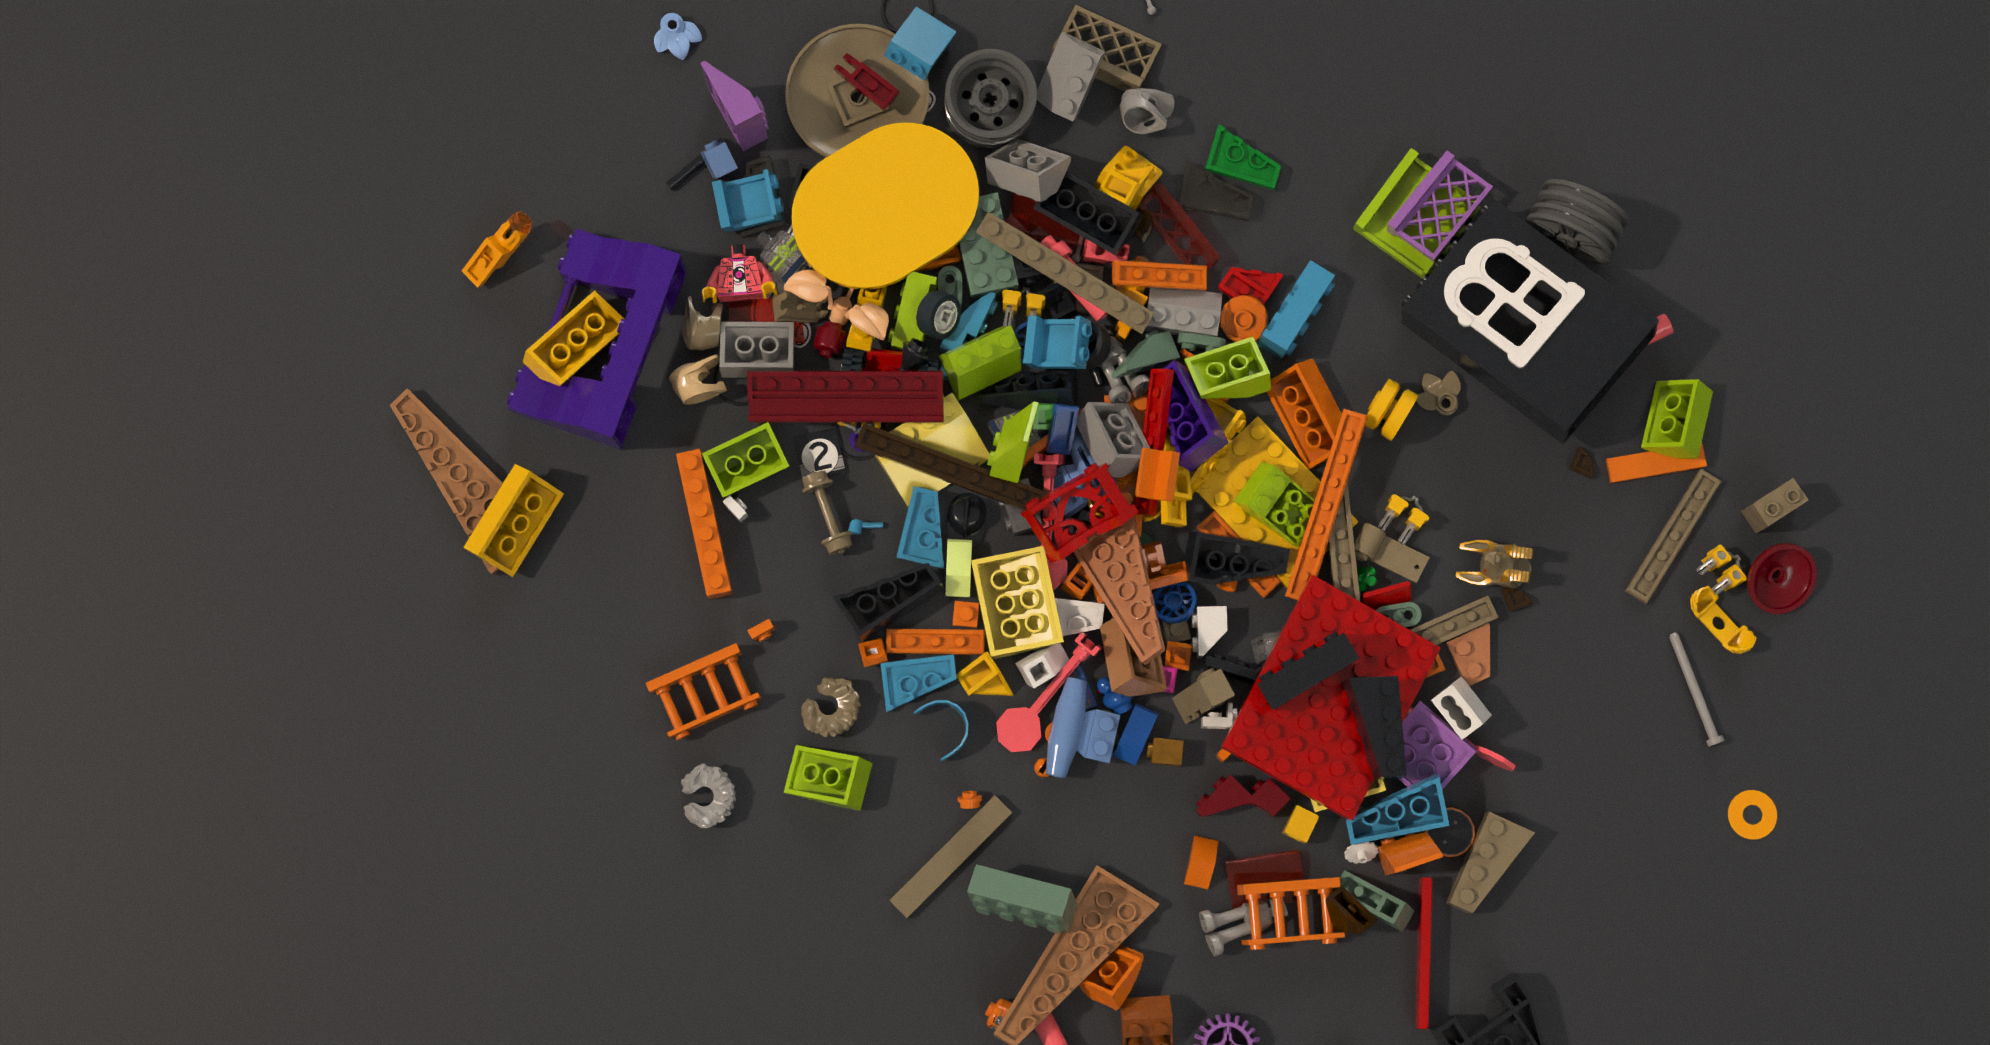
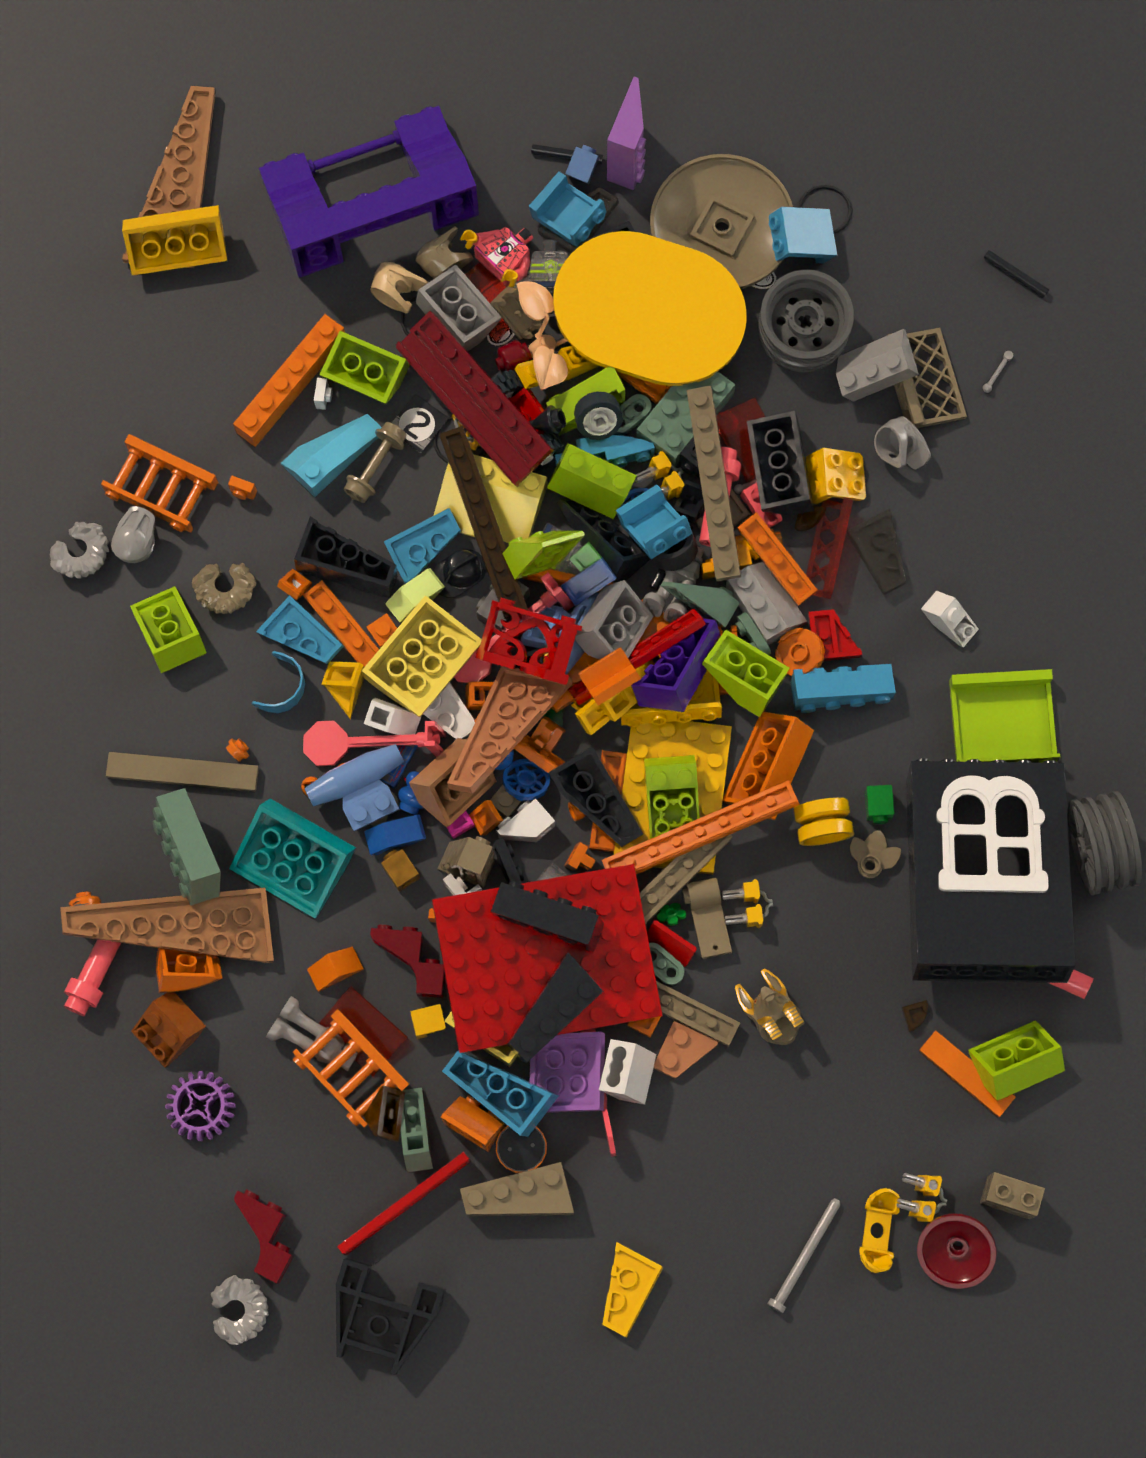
camera: 55 degrees right, 5 degrees down
(497, 248) = (375, 65): light orange plate -> none
(573, 340) = (347, 167): yellow slope -> none
(676, 39) = (651, 63): light blue plate -> none
(733, 744) = (134, 536): none -> light grey helmet
(787, 545) = (327, 456): none -> medium azure wedge
(856, 526) = (383, 493): dark azure hand -> none
(868, 83) = (736, 221): dark red hinge -> none
(1027, 169) = (772, 391): light grey slope -> none
(1089, 826) = (292, 857): none -> teal slope
(1126, 184) = (825, 474): yellow slope -> none
(1239, 161) = (925, 549): green wing -> none
(1266, 612) = (579, 858): none -> orange tile
(1308, 187) = (950, 618): none -> white slope
(1361, 852) = (445, 1087): white piece -> none
(1406, 357) = (879, 803): none -> green brick
(1423, 193) = (1017, 708): medium lavender fence -> none
(1515, 599) = (757, 1049): dark brown tile -> none
(1618, 838) = (629, 1288): none -> yellow wing
(1673, 536) = (918, 1136): dark tan tile -> none
(1736, 819) = (724, 1387): light orange piece -> none

